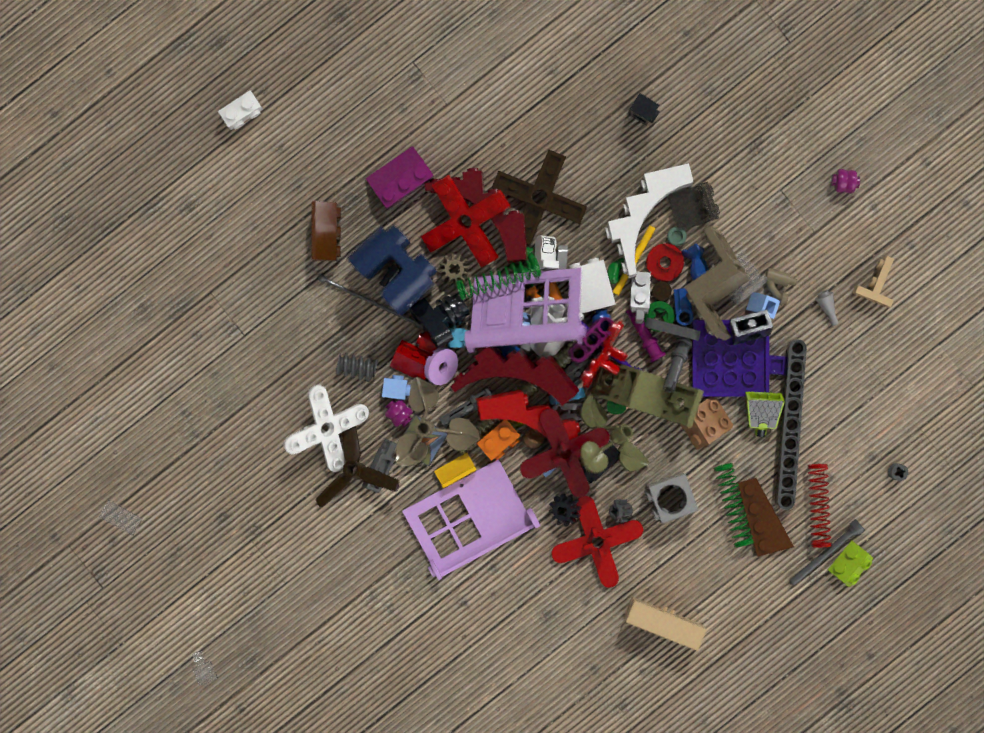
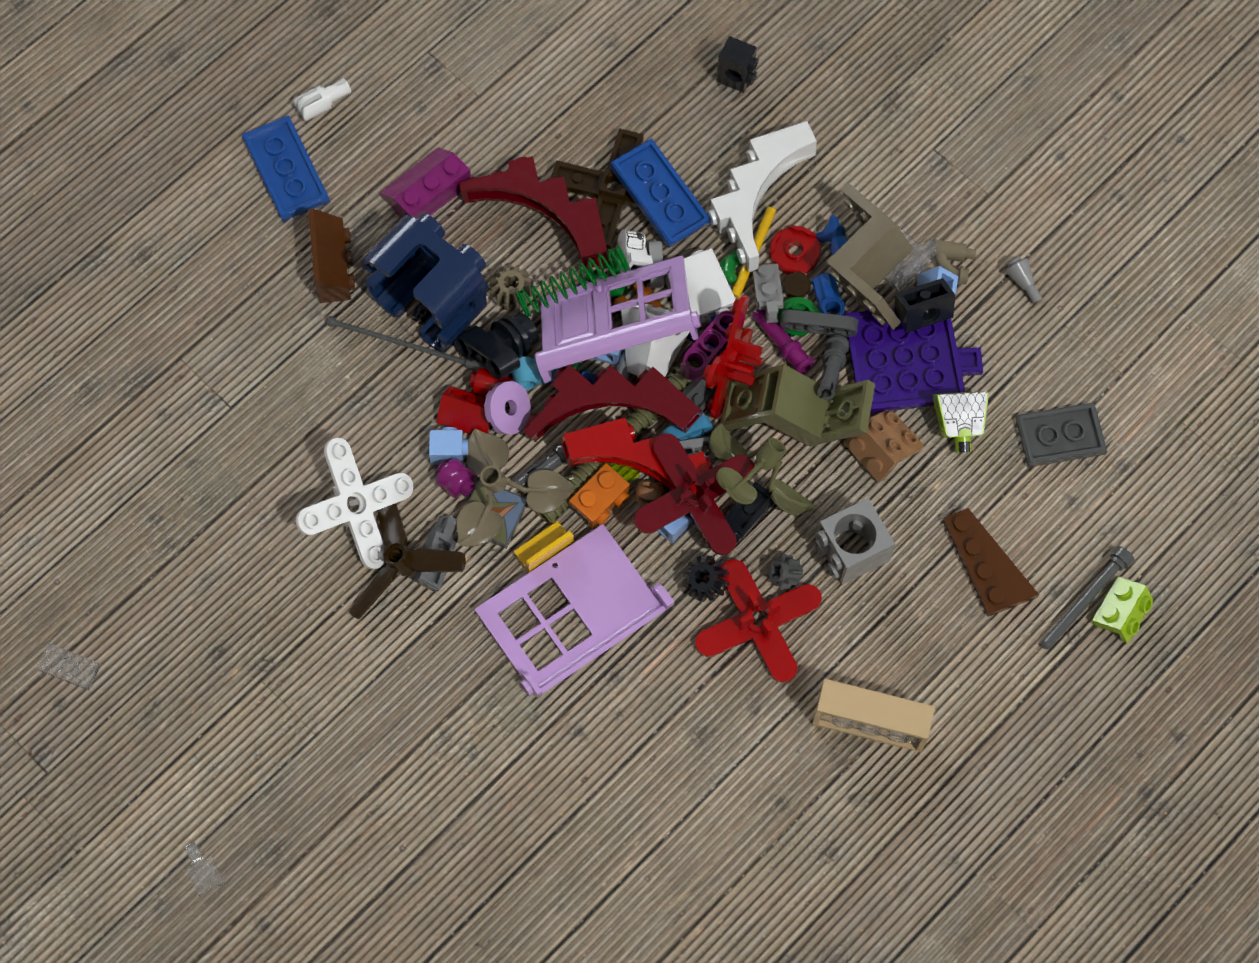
camera: 10 degrees left, 20 degrees down
(240, 110) = (204, 125): white brick -> none
(298, 149) = (285, 168): none -> blue tile
(328, 97) = (320, 99): none -> white arm
(356, 367) = (390, 424): dark grey piece -> none
(454, 227) = (535, 204): red piece -> none
(571, 209) = (660, 193): none -> blue tile
(615, 408) = (755, 437): green piece -> none
(676, 237) = (806, 216): sand green tile -> none
(693, 206) = (822, 174): clear smoke bracket -> none
(729, 467) = (972, 589): green piece -> none
(794, 434) = (1003, 443): dark grey beam -> none
(816, 543) = (1068, 586): red piece -> none
(832, 429) = (1061, 435): none -> dark grey tile
(845, 181) = (1016, 124): magenta piece -> none
(876, 284) = (1079, 254): tan bracket -> none
(903, 474) = (1163, 476): dark grey bush -> none

